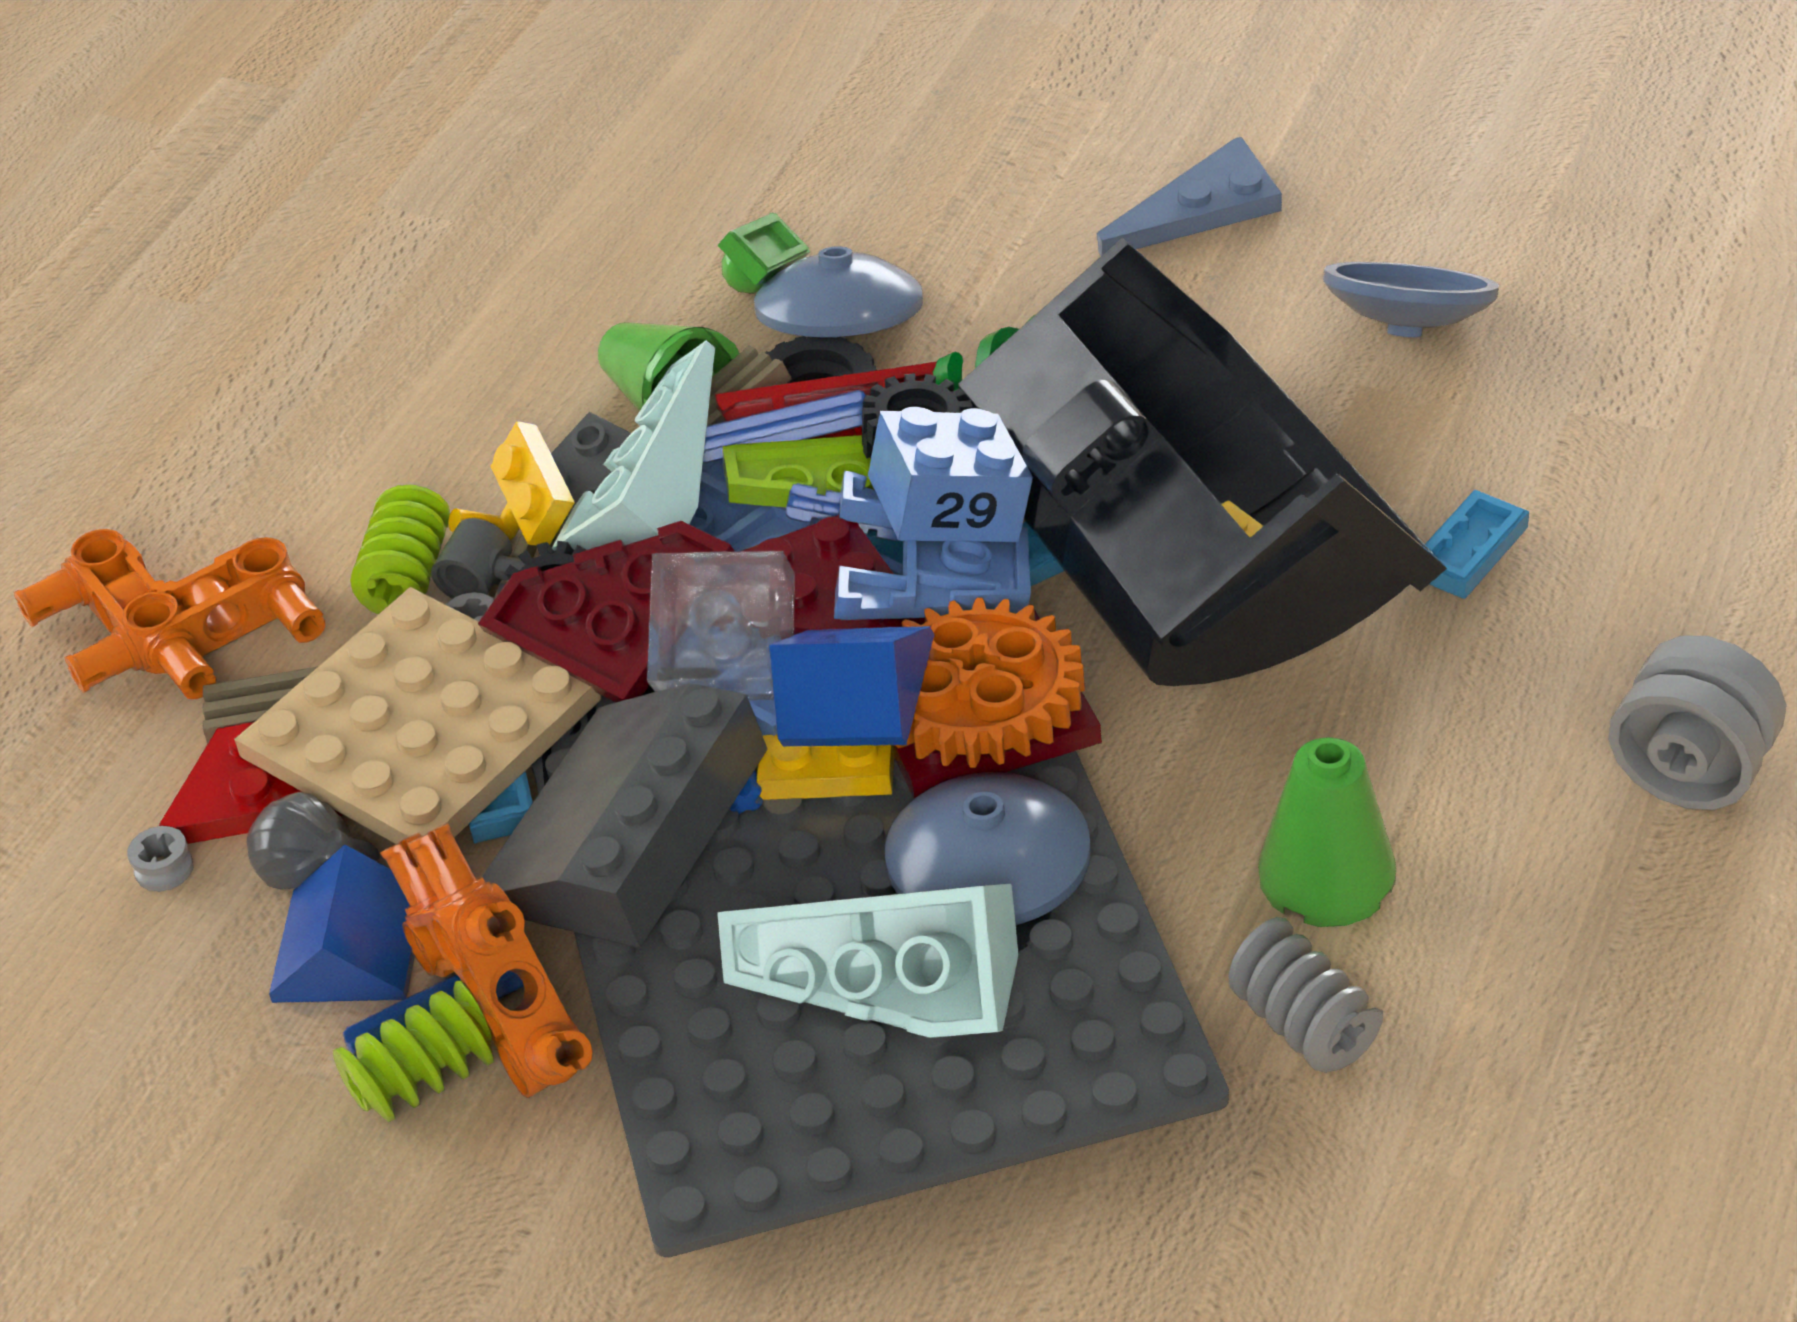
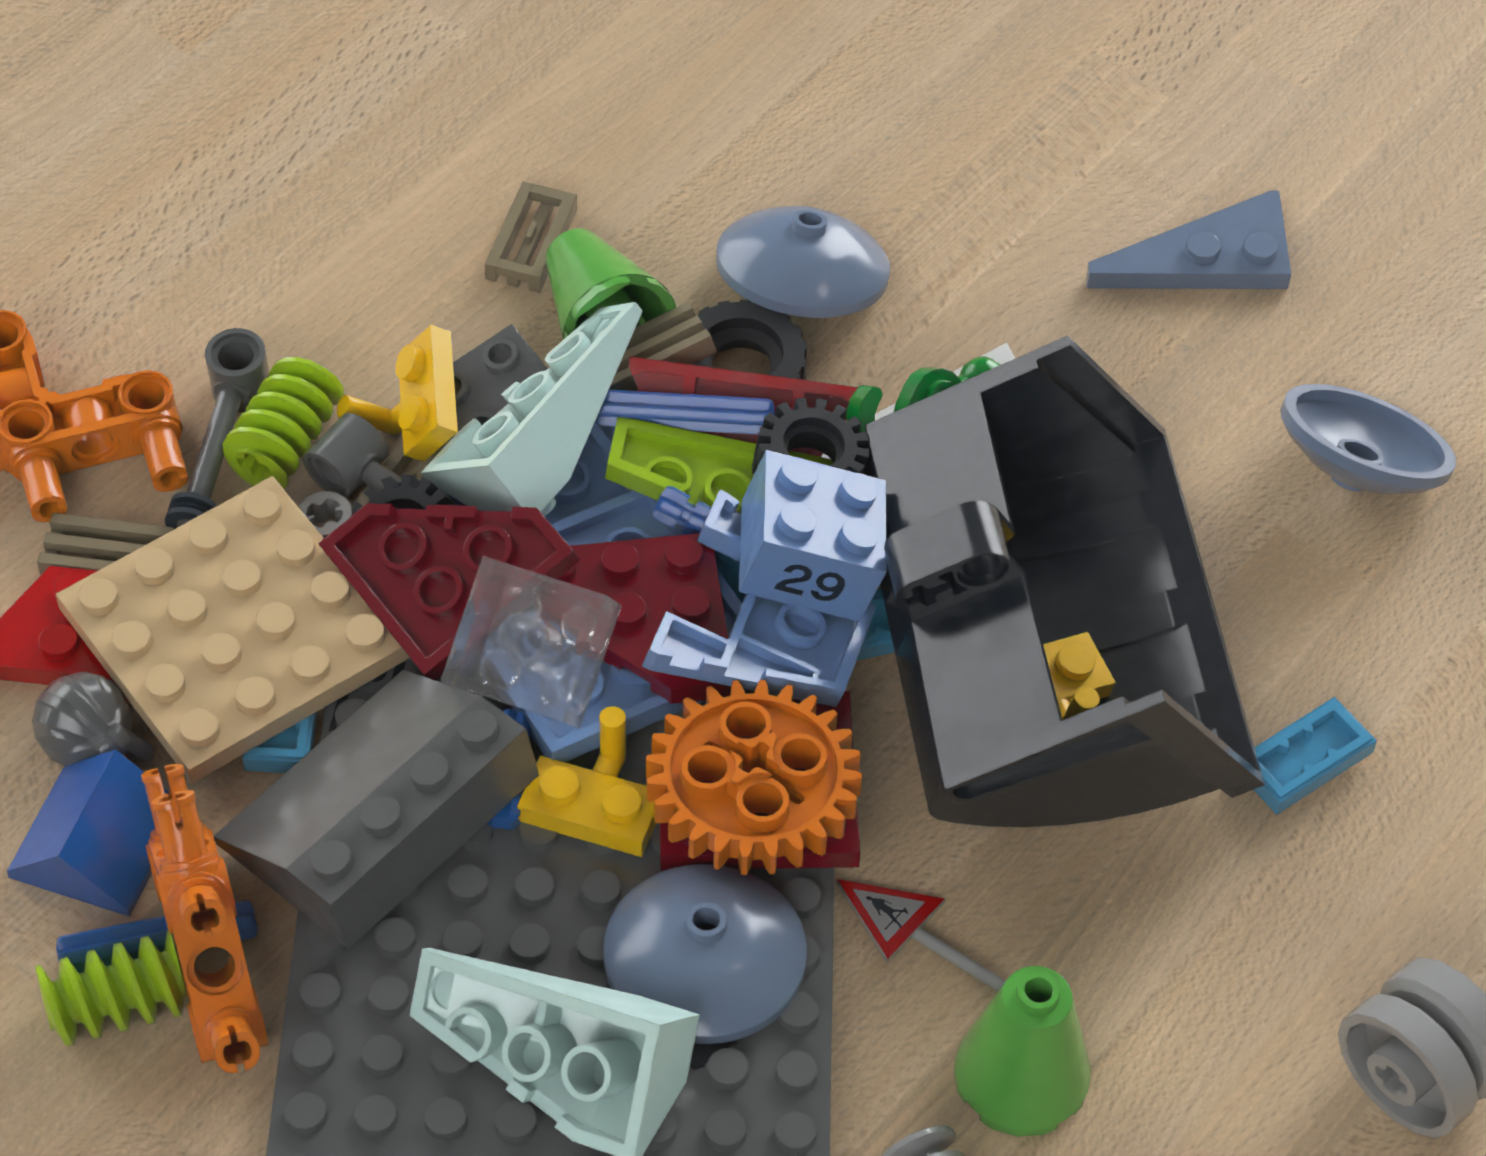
camera: 10 degrees right, 10 degrees up
(338, 524) = (235, 370): none -> dark grey piece
(574, 378) = (519, 269): none -> dark tan tile
(759, 252) = (747, 182): bright green tile -> none
(848, 685) = (627, 746): blue slope -> none
(1154, 781) = (897, 916): none -> piece

